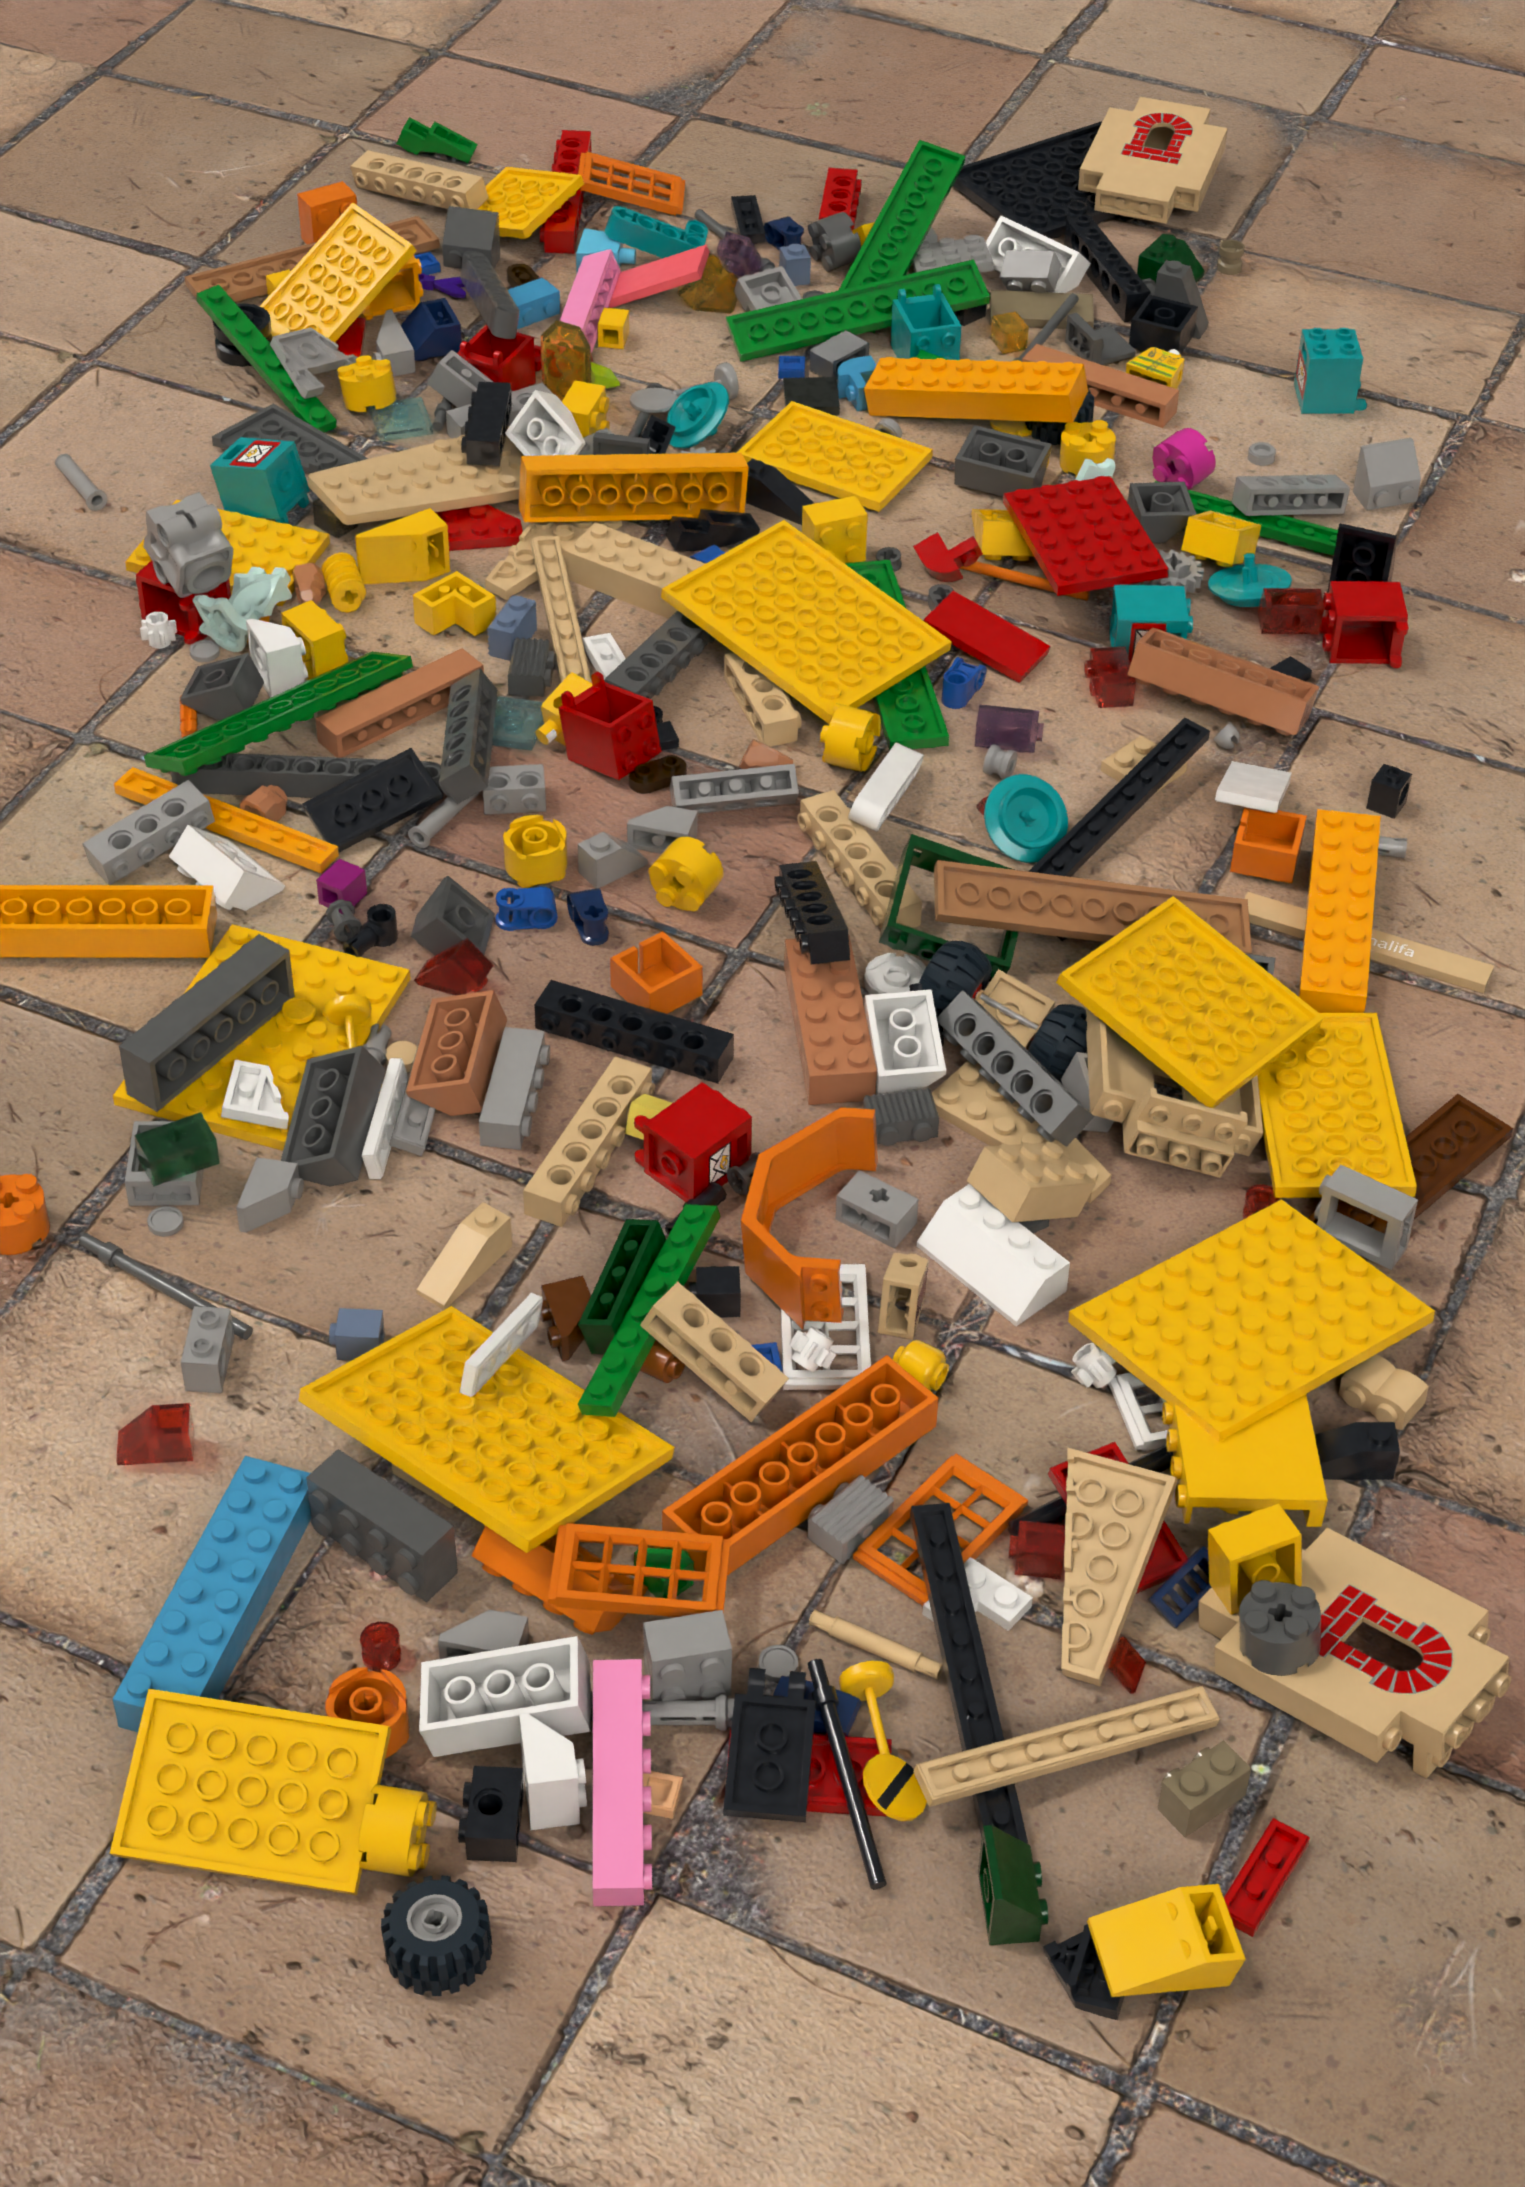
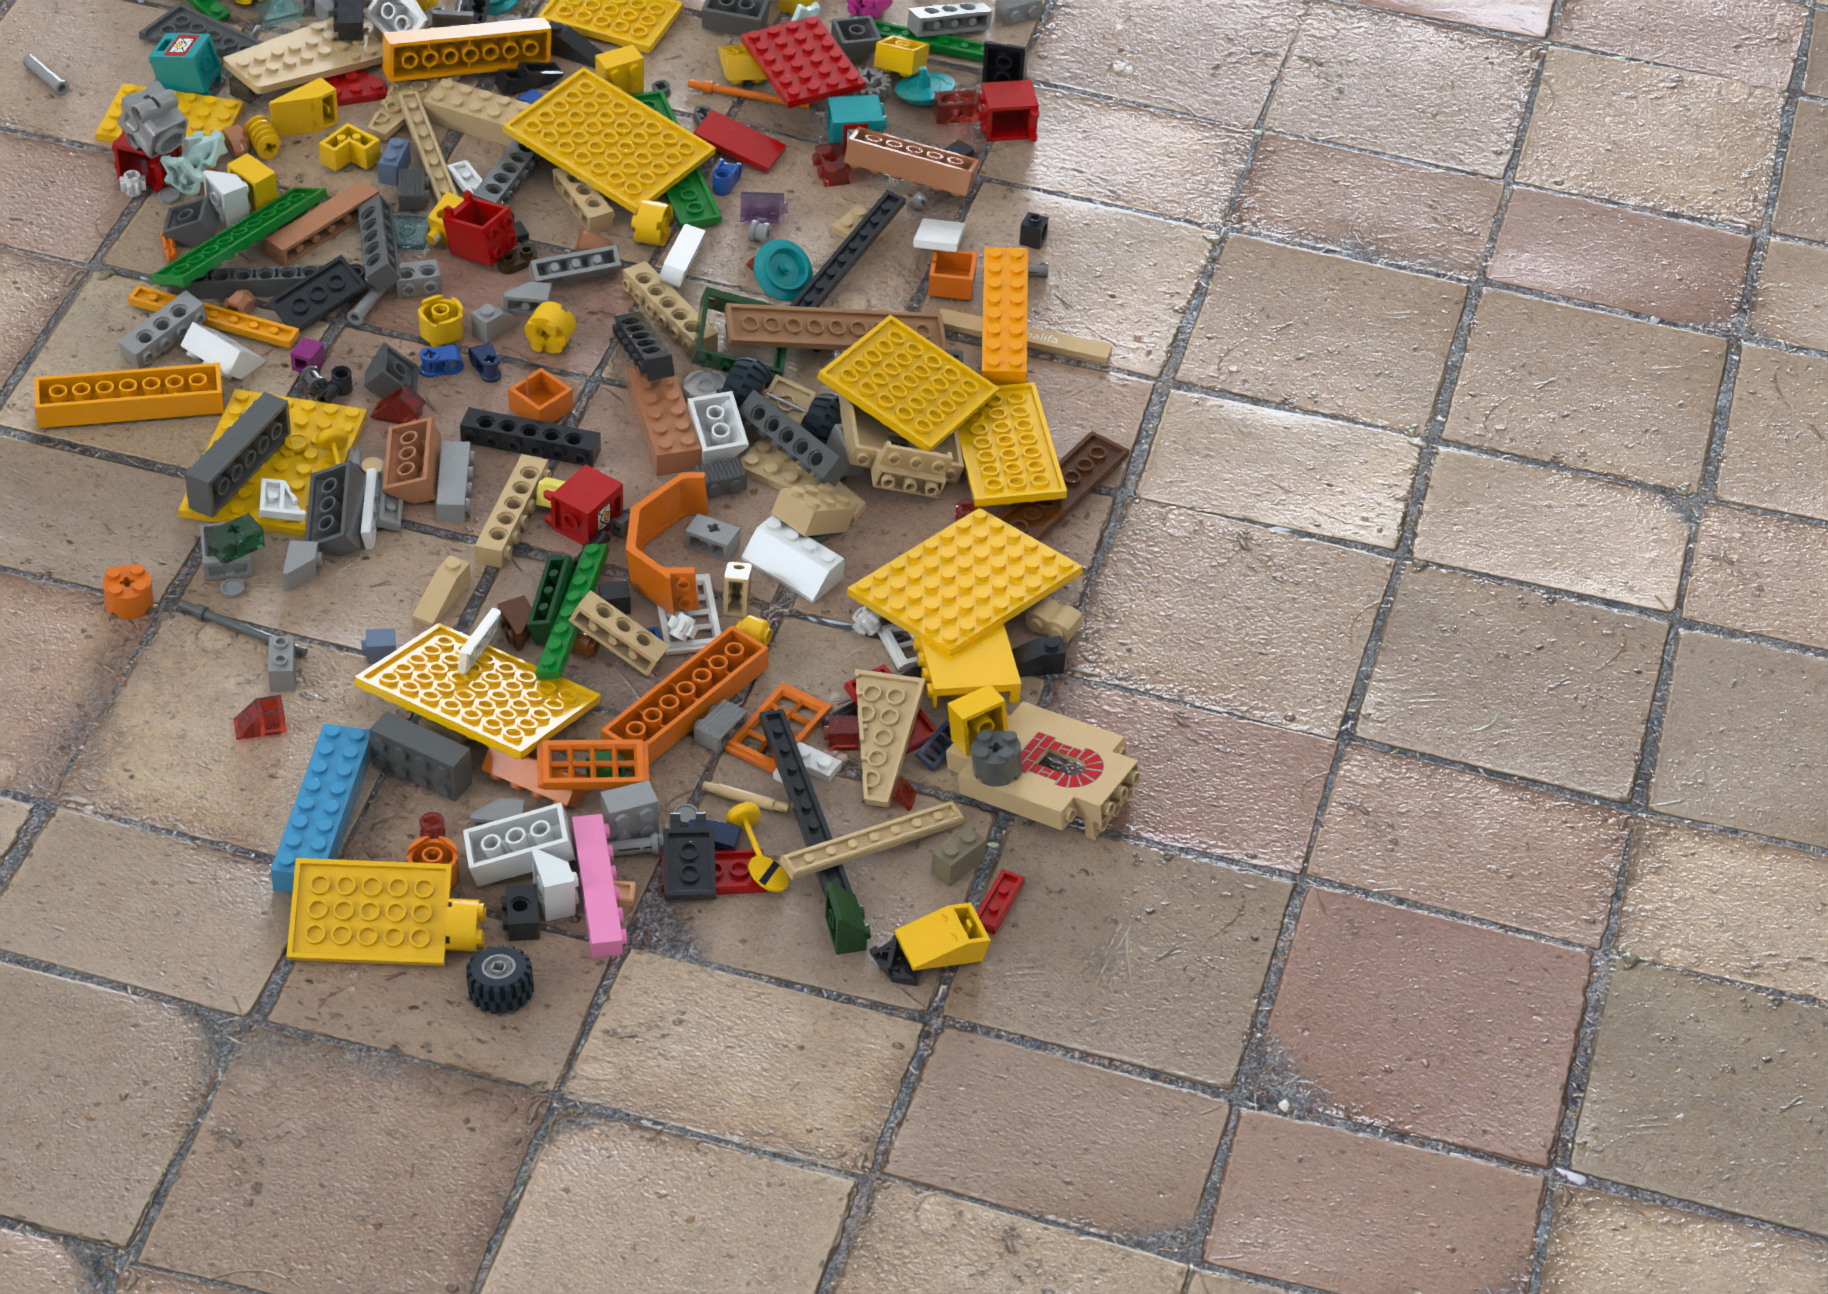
camera: 10 degrees left, 0 degrees up
(826, 1703) = (720, 830): black bar -> none
(945, 563) = (702, 89): red brick -> none
(1375, 1199) = (1039, 499): light grey window -> none

